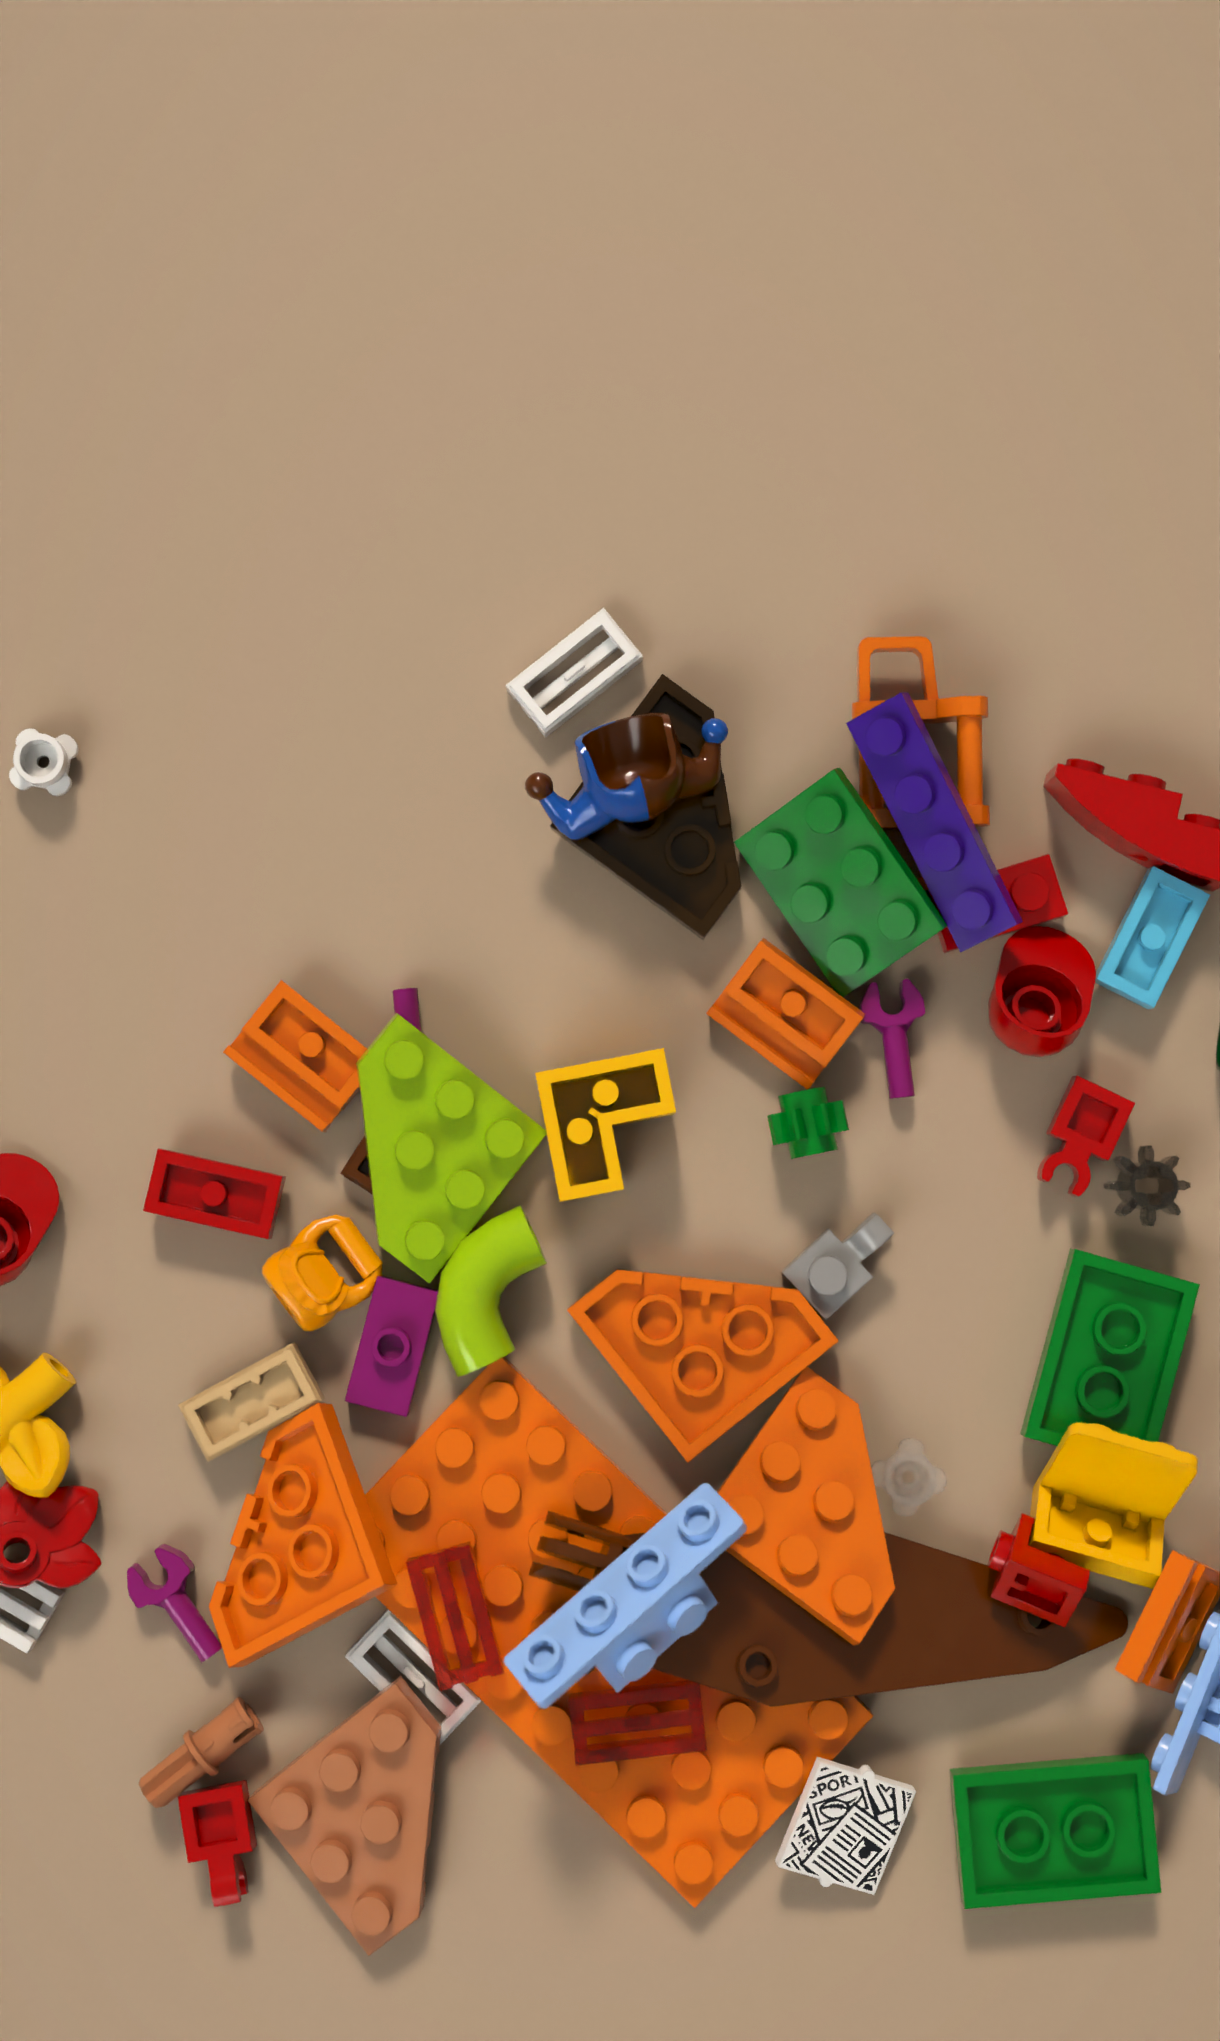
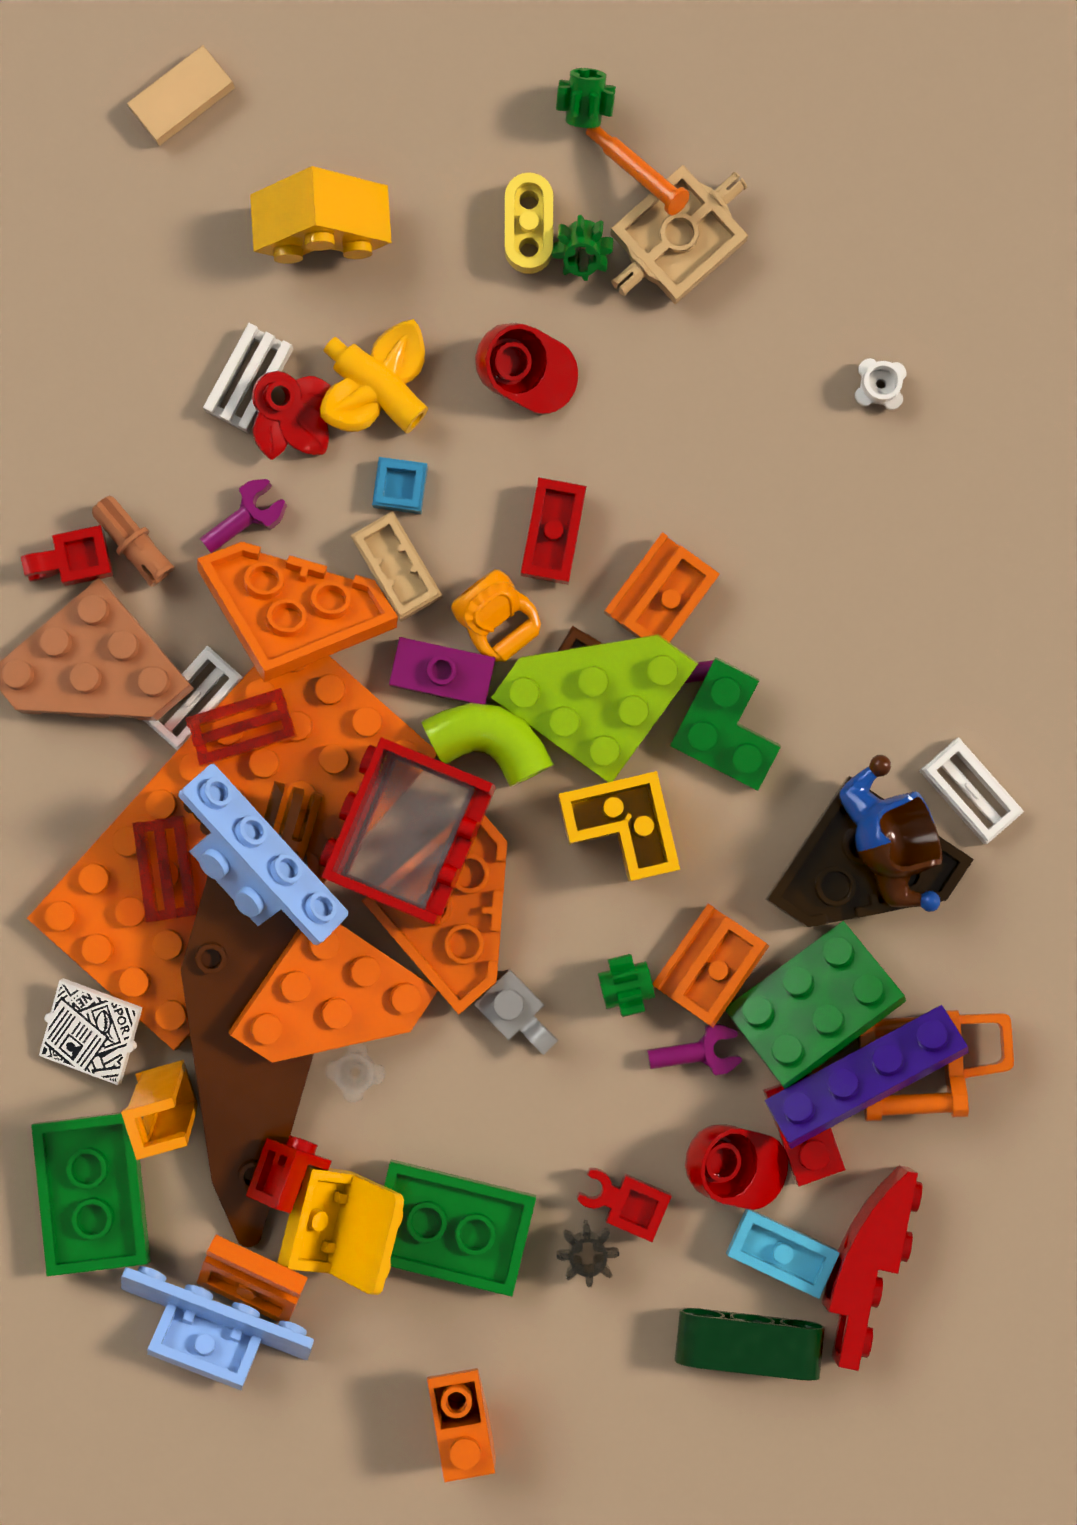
camera: 80 degrees right, 0 degrees up
(144, 1393) = (400, 485): none -> dark azure tile
(483, 997) = (713, 732): none -> green plate
(600, 1402) = (407, 830): none -> clear window
(949, 1727) = (168, 1108): none -> light orange window

